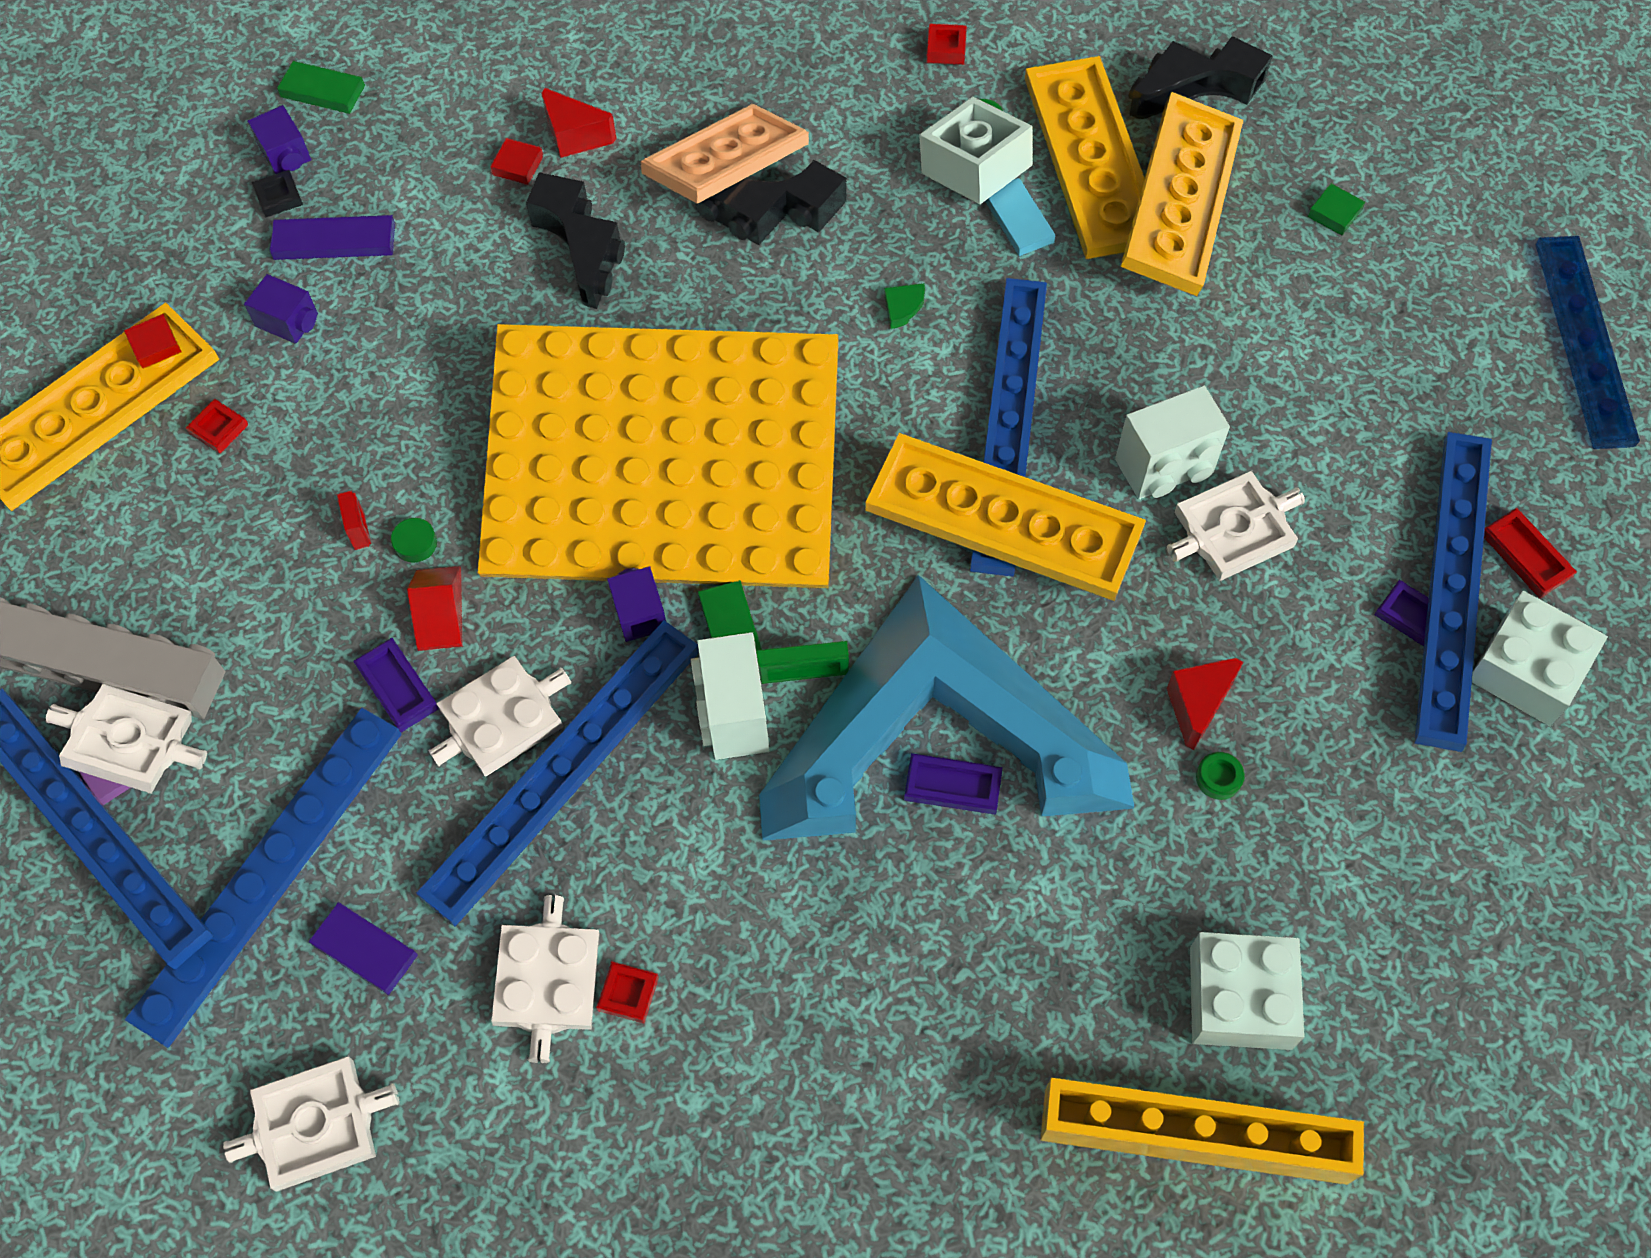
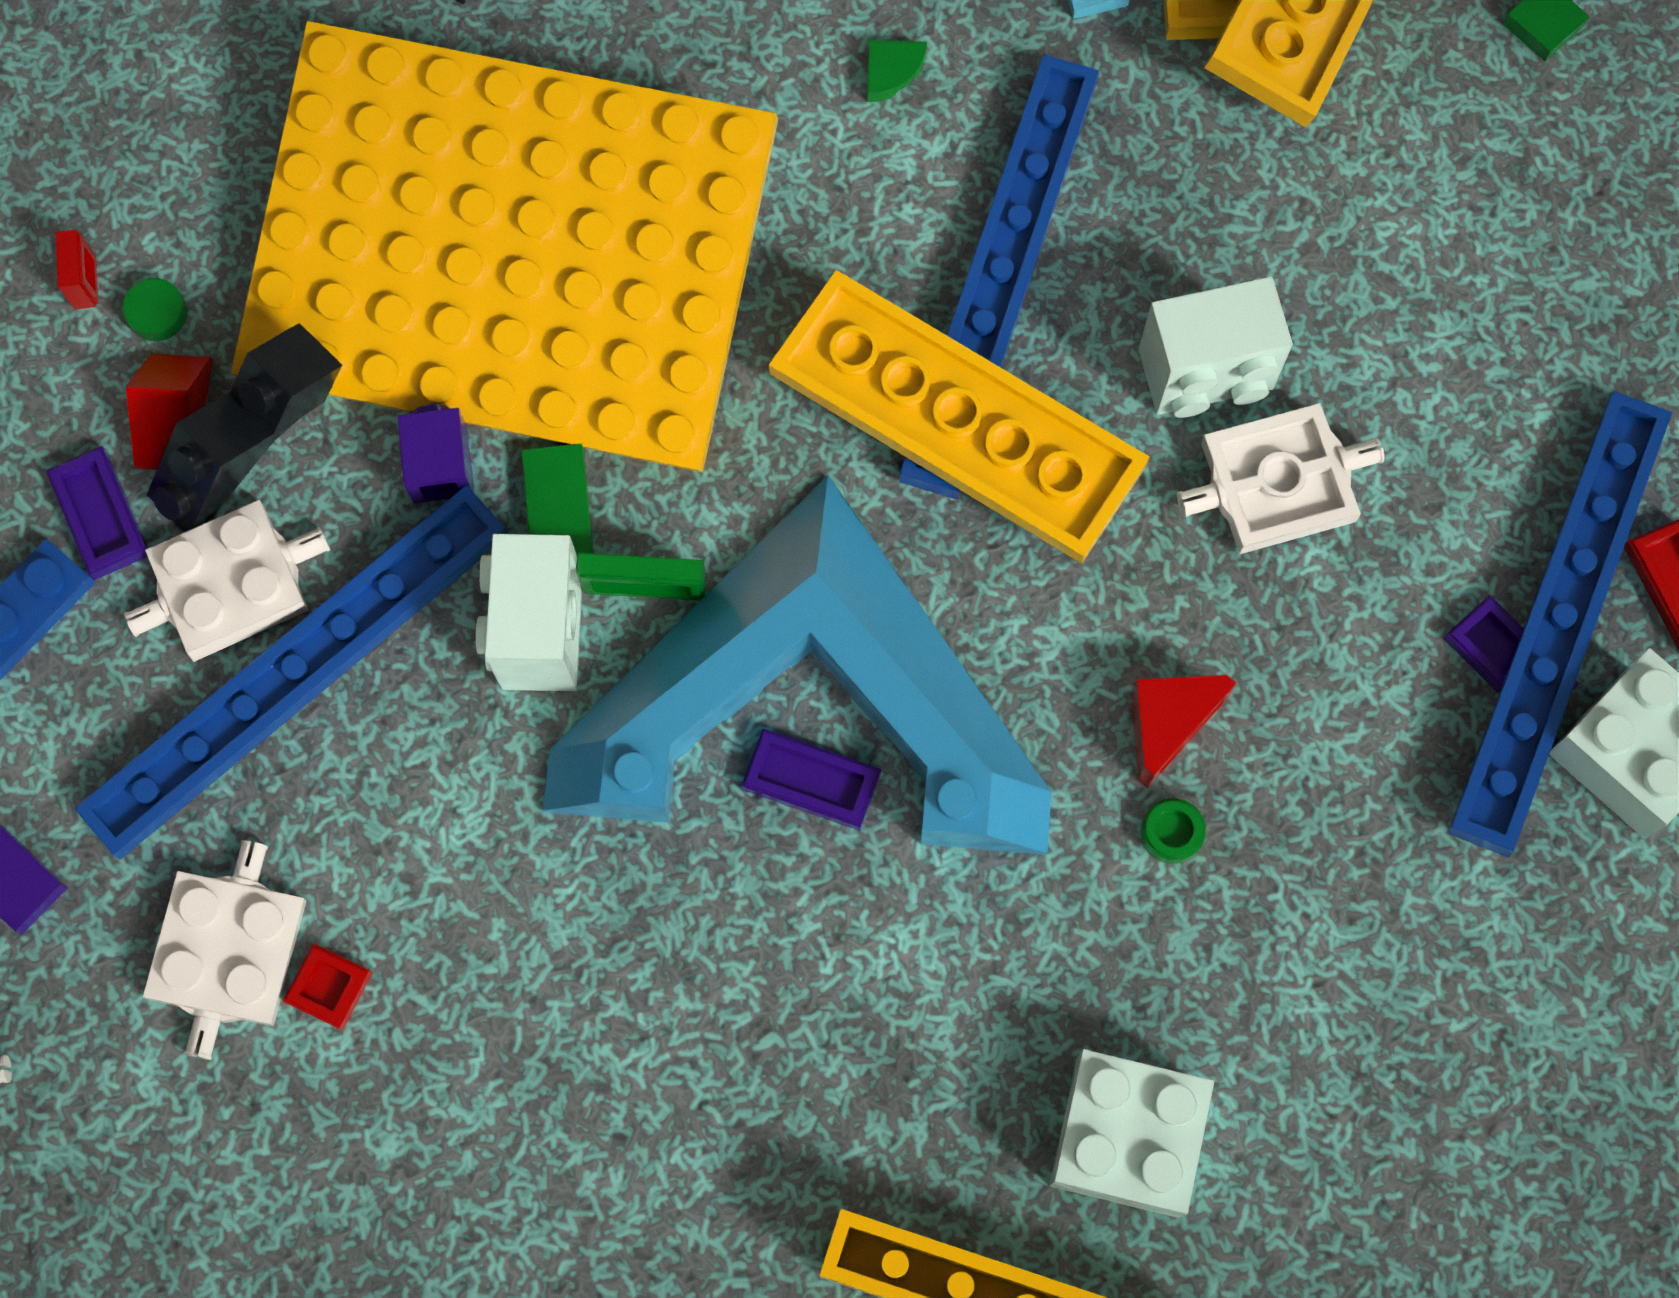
camera: 10 degrees right, 10 degrees up
(488, 609) = (227, 437): none -> black arch

